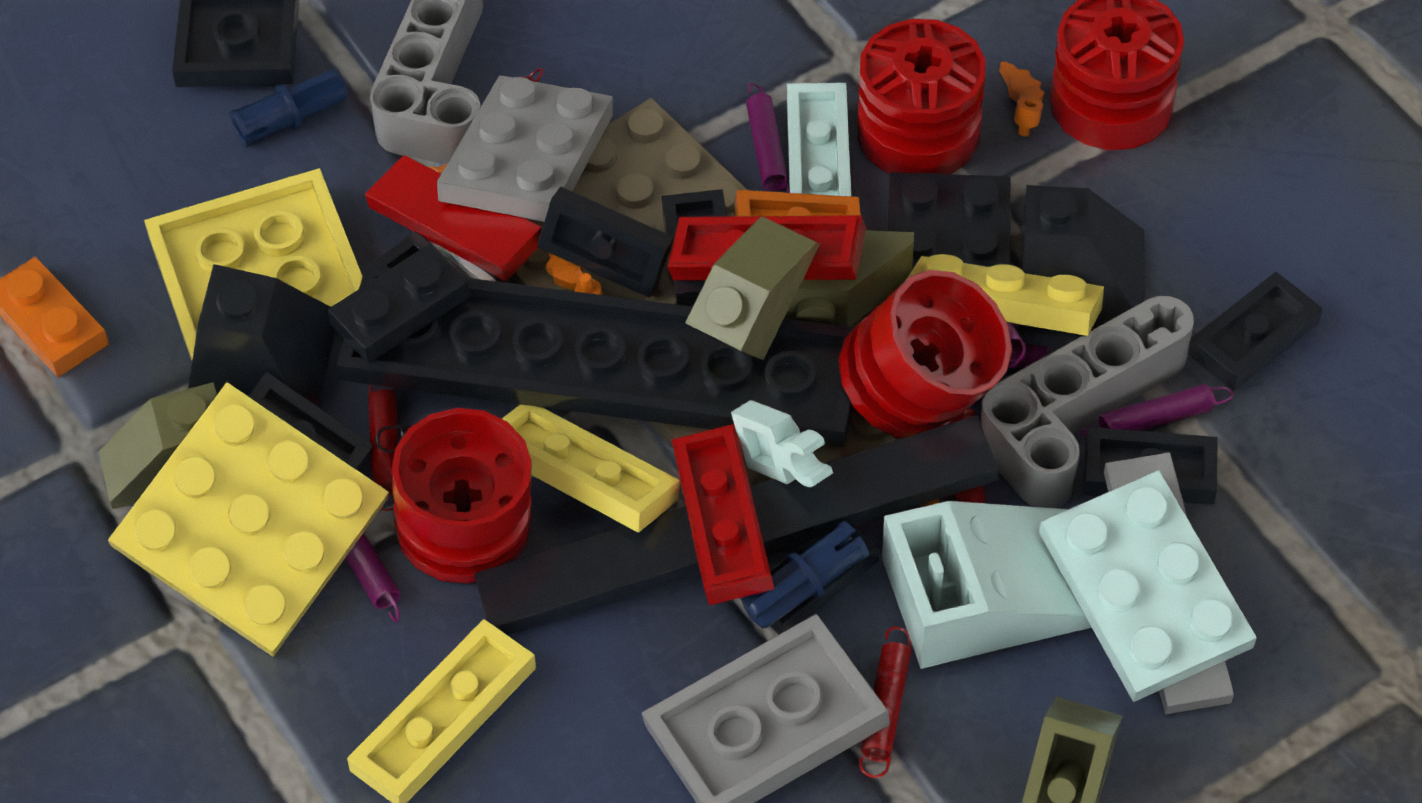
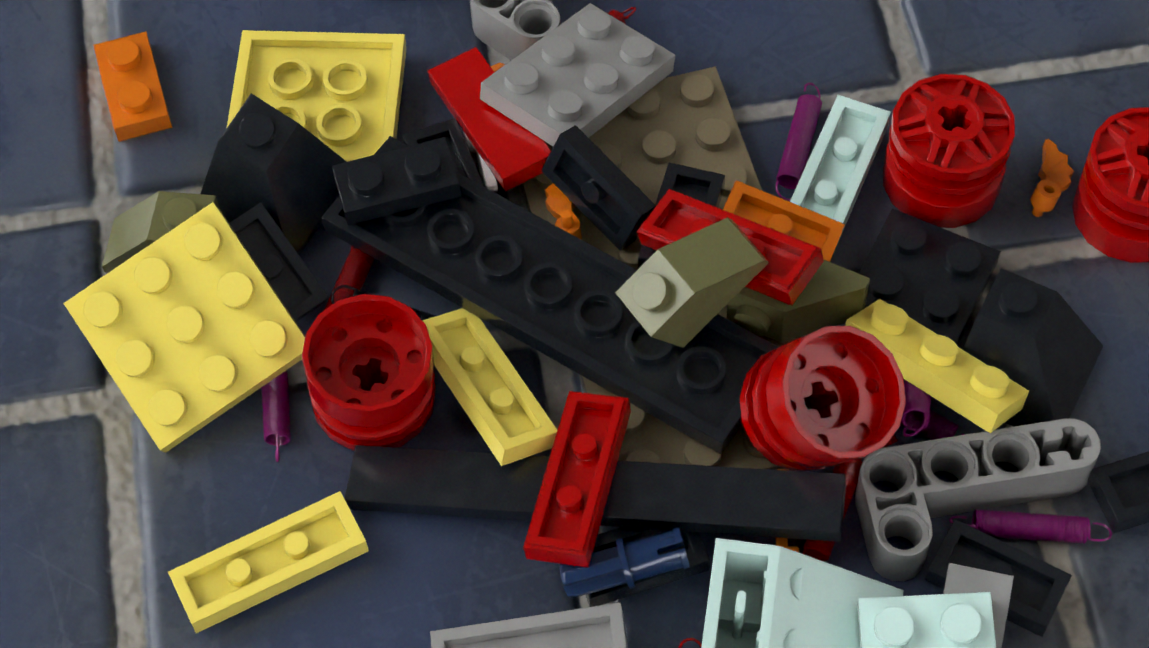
camera: 25 degrees right, 5 degrees up
(776, 446) = (654, 434): light aqua plate -> none

